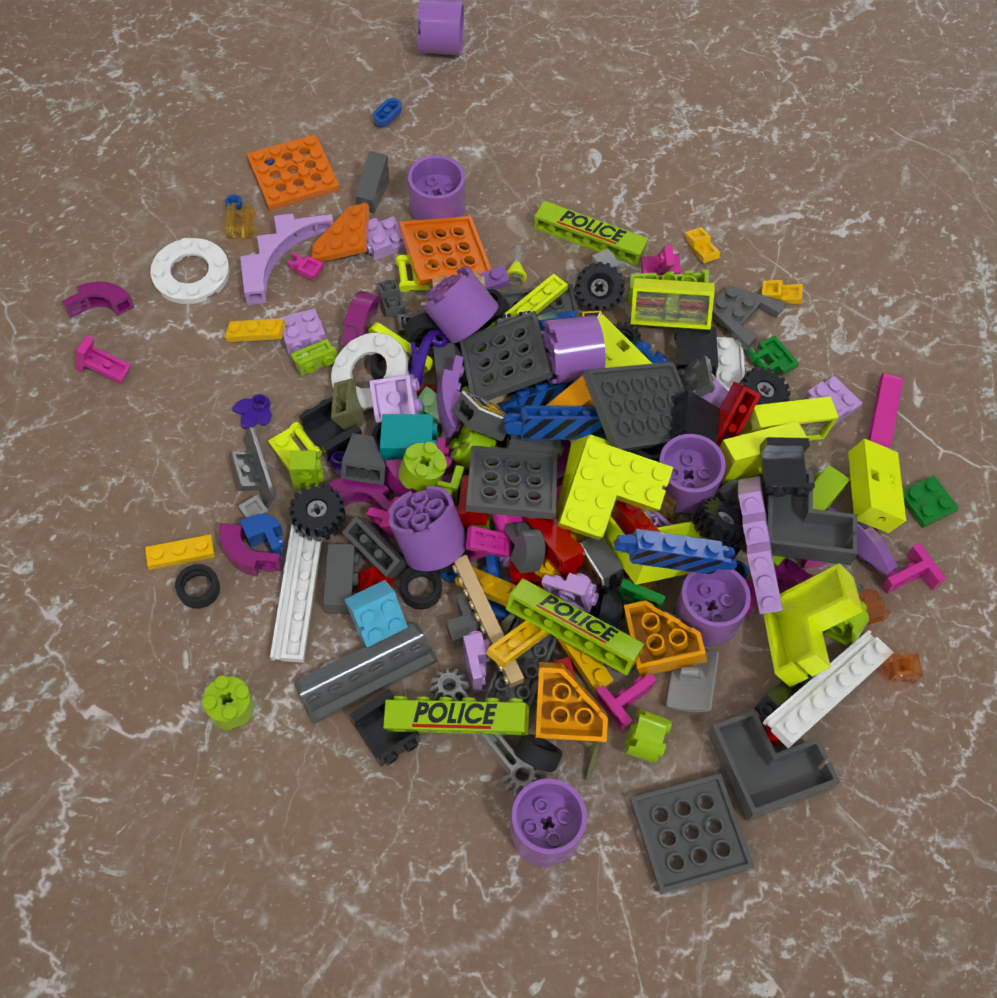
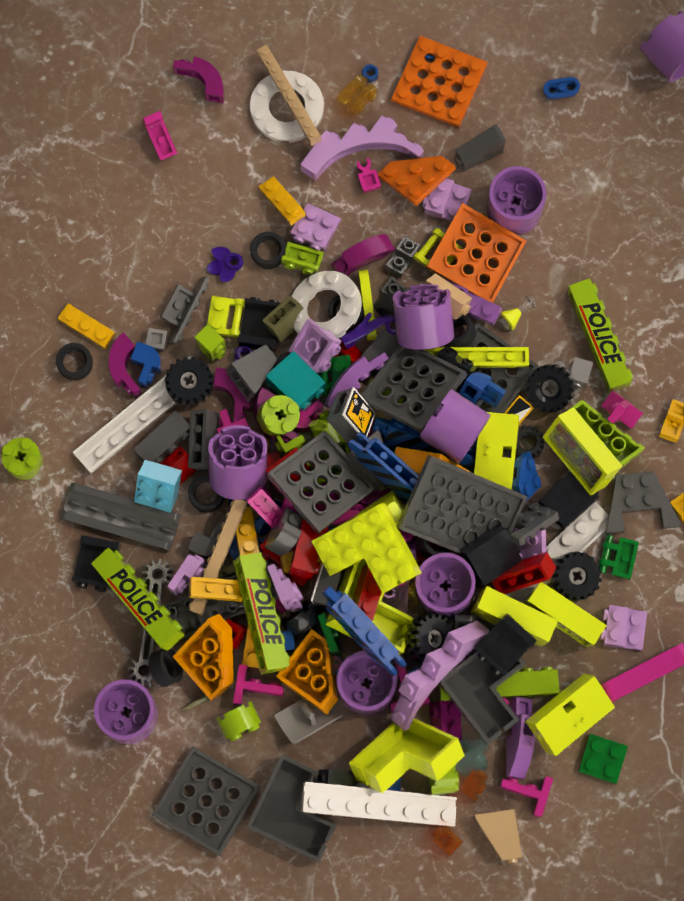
camera: 50 degrees right, 15 degrees up
(185, 255) = (289, 95): none -> tan piece
(276, 361) = (264, 236): none -> black tyre
(933, 623) = (502, 834): none -> tan slope

